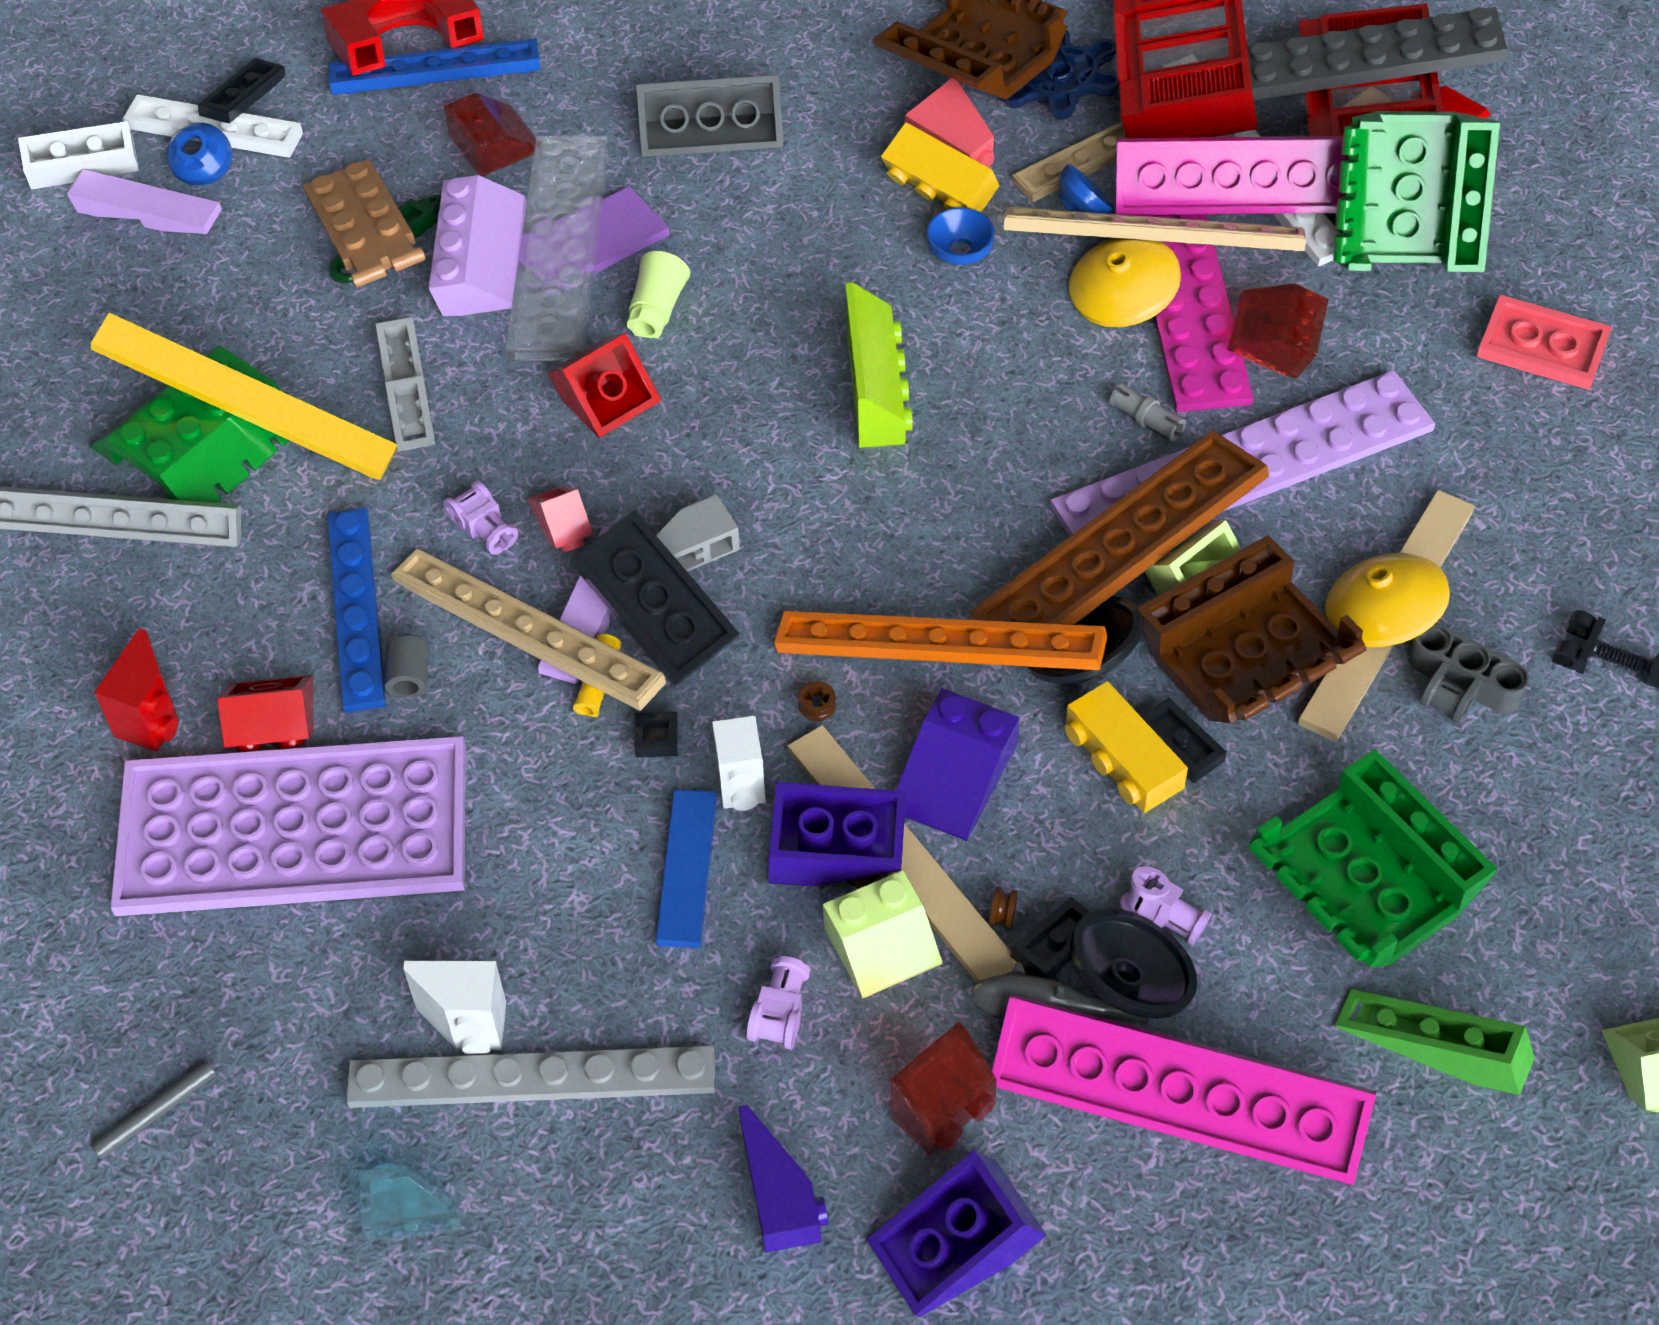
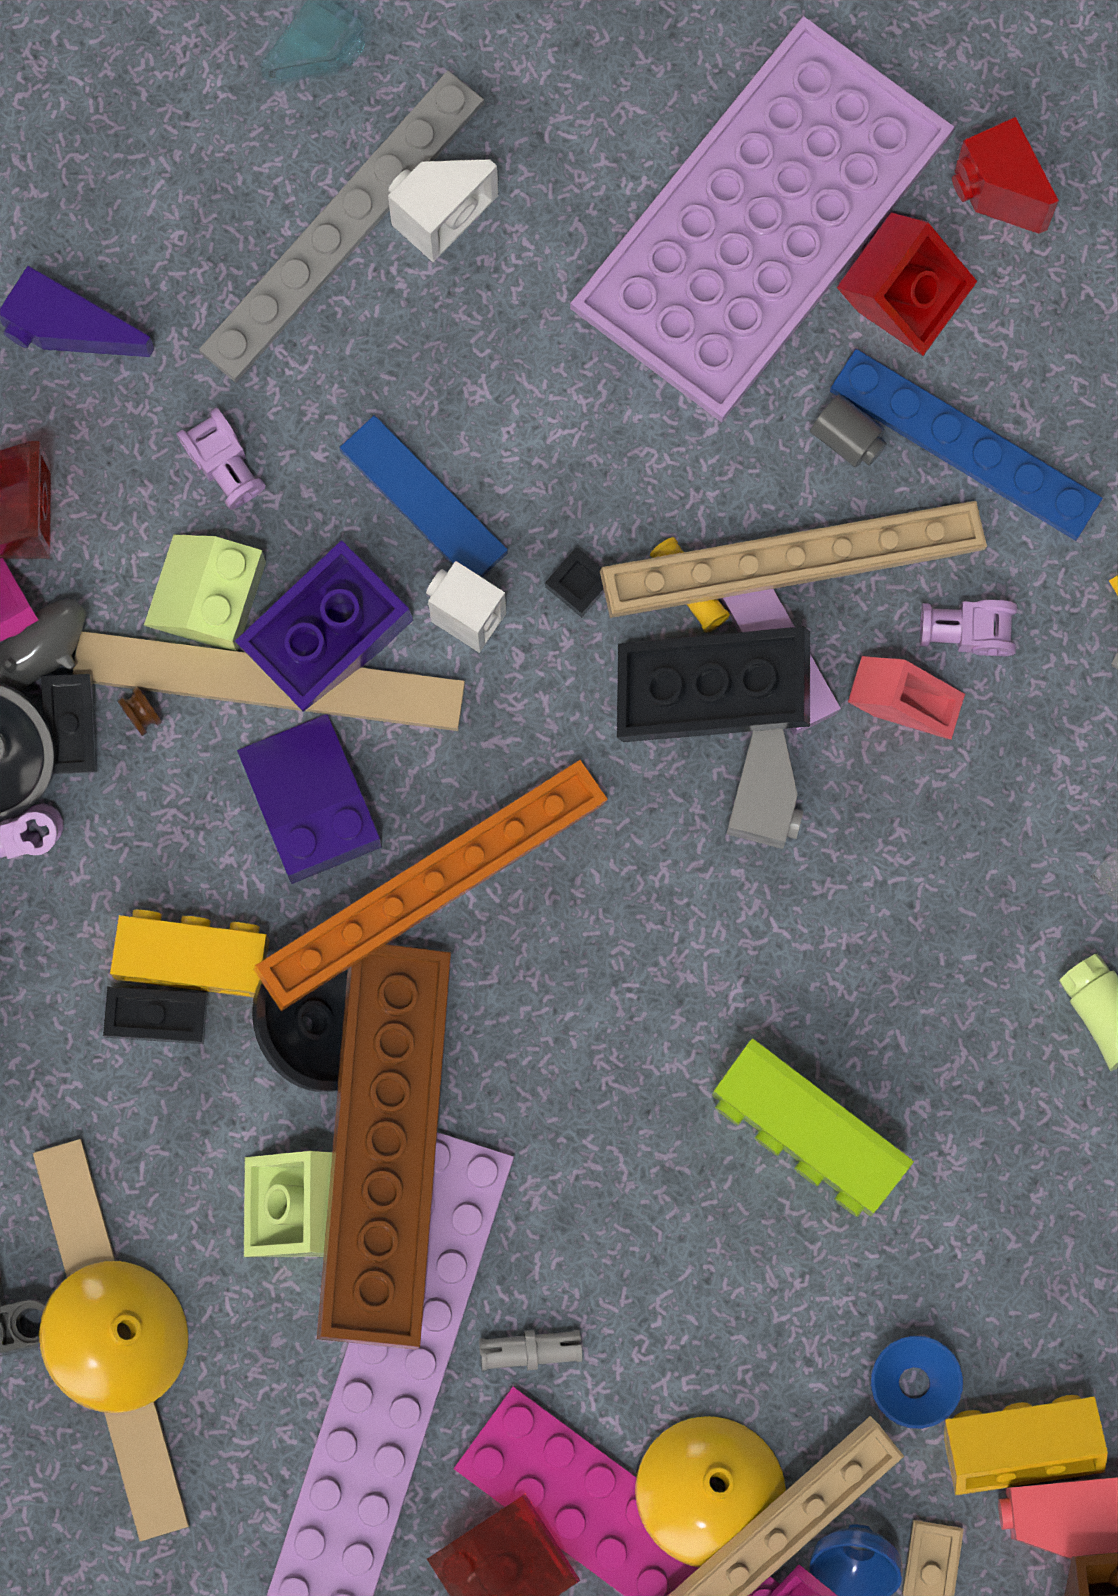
camera: 130 degrees right, 25 degrees up
(605, 384) = (1036, 868): red slope -> none
(827, 705) = (490, 733): reddish brown bush -> none
(1244, 634) = (183, 1166): reddish brown slope -> none

